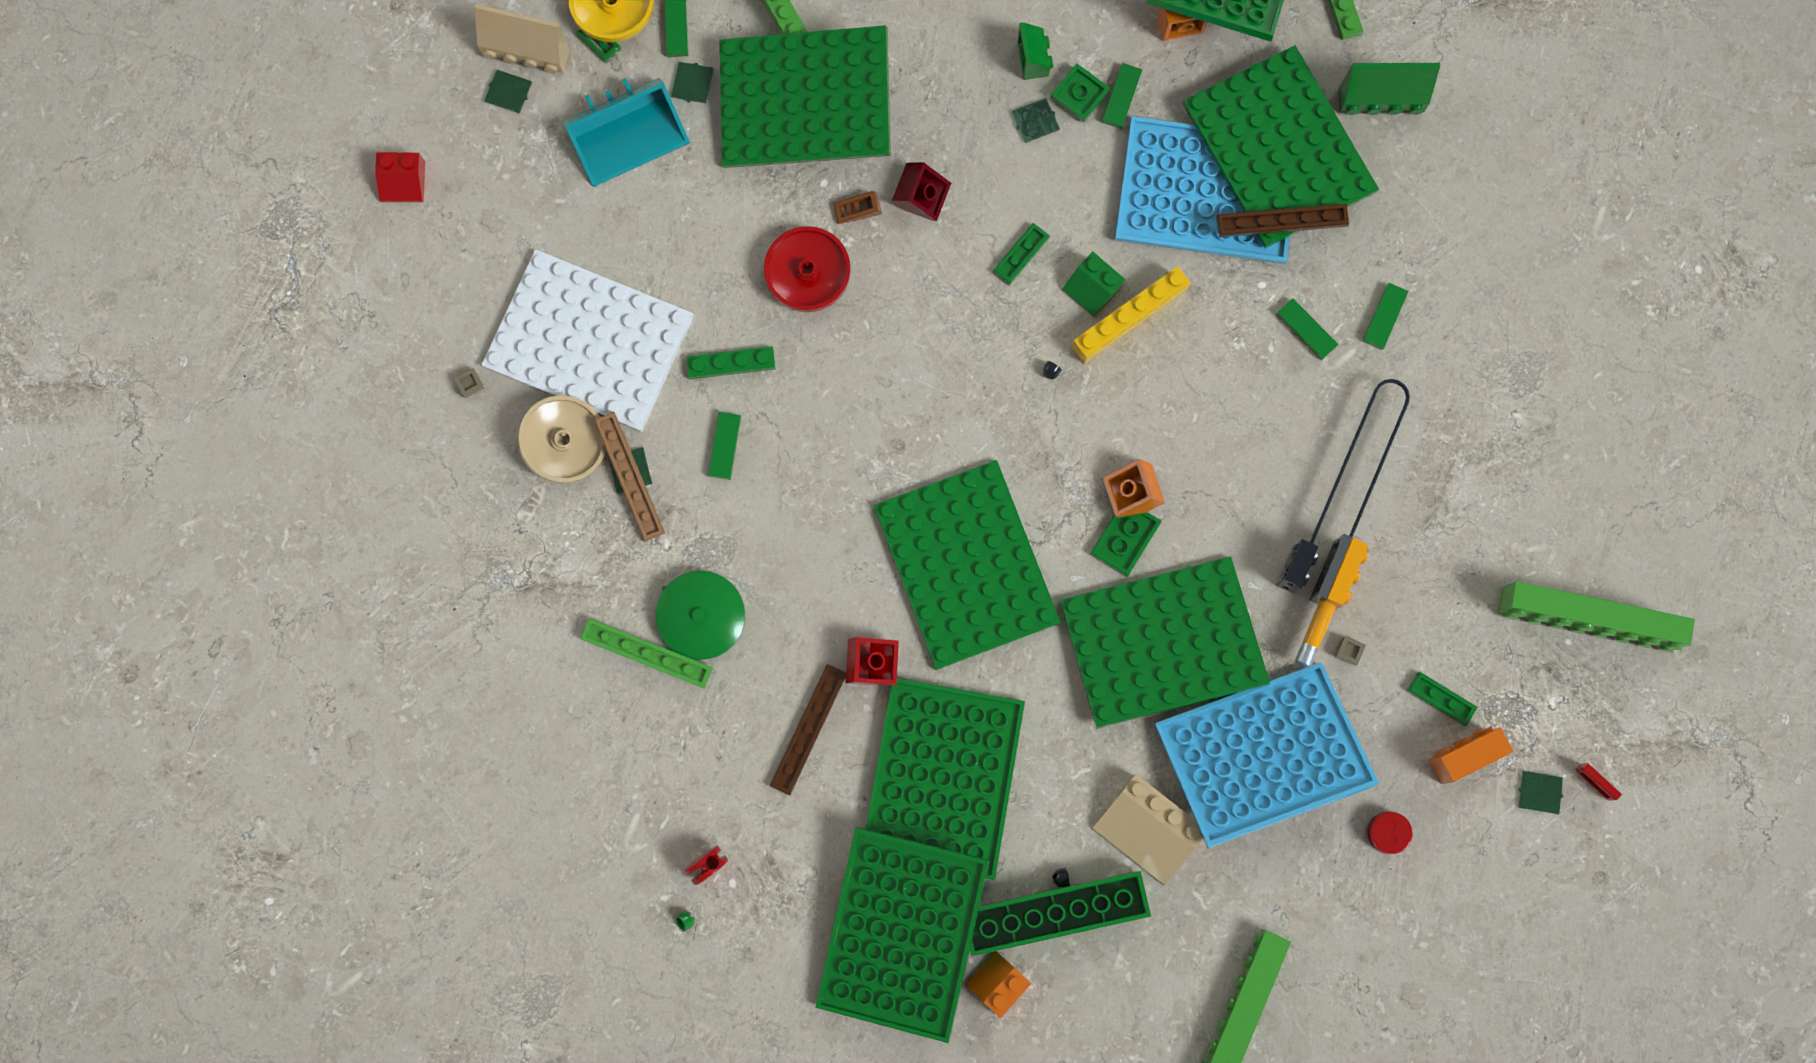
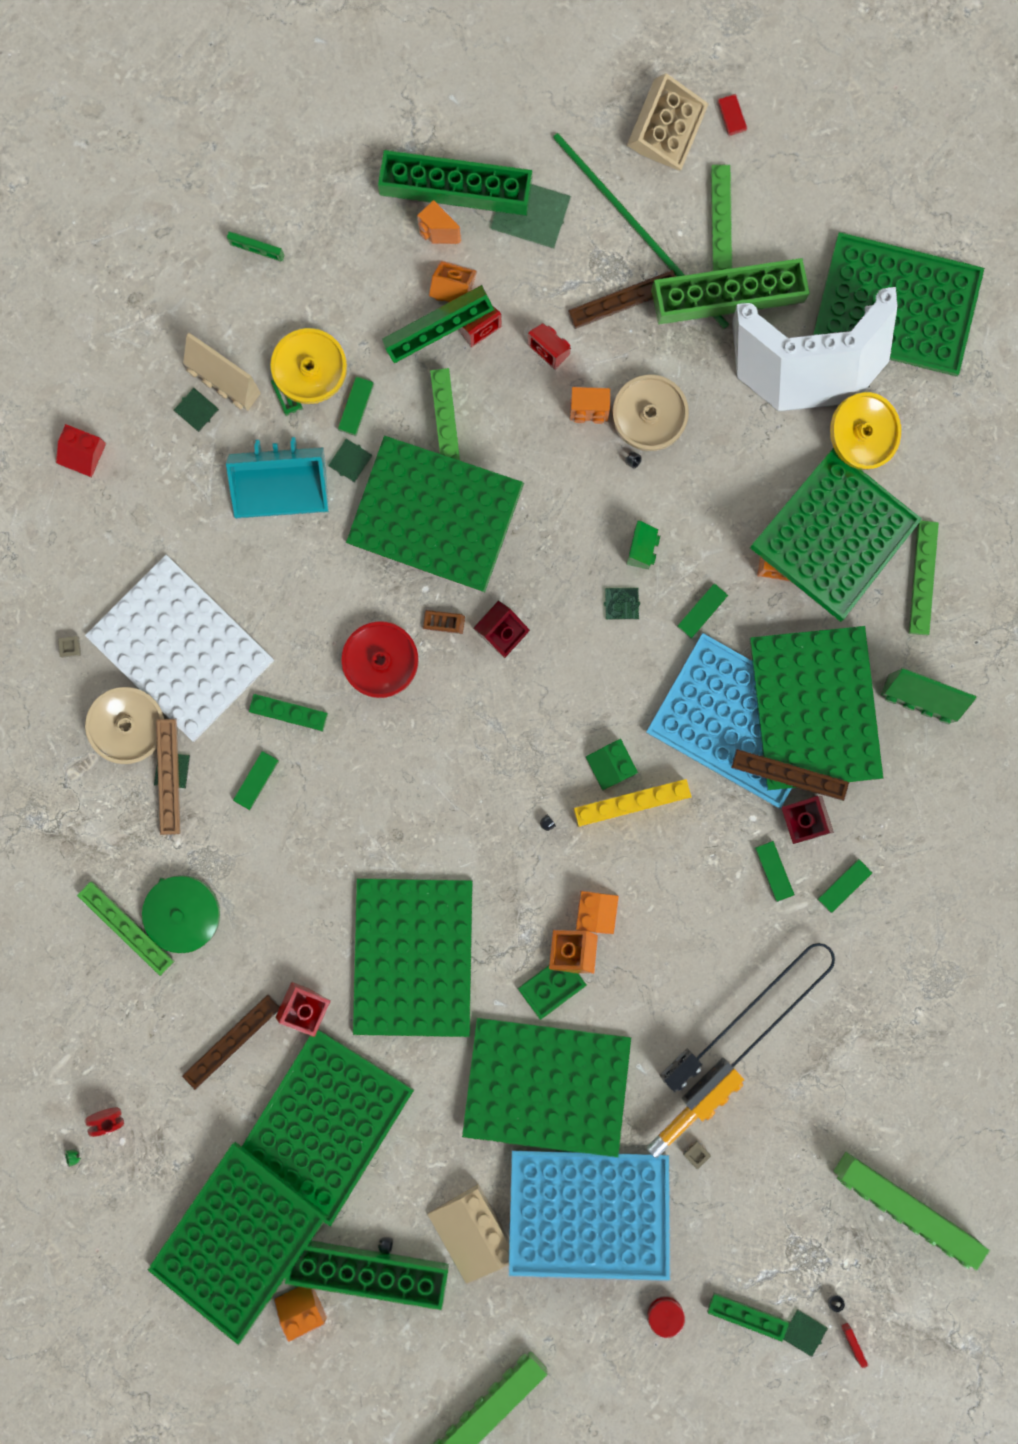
camera: 25 degrees right, 5 degrees up
(1021, 254) = (563, 713): green tile -> none
(1080, 92) = (668, 595): green plate -> none
(1140, 440) = (597, 912): none -> orange slope
(1319, 261) = (807, 819): none -> dark red slope
(1442, 699) = (756, 1224): green tile -> none
(1470, 754) = (757, 1283): orange brick -> none
(1475, 798) = (747, 1317): none -> green plate
(1560, 742) = (839, 1299): none -> black hinge

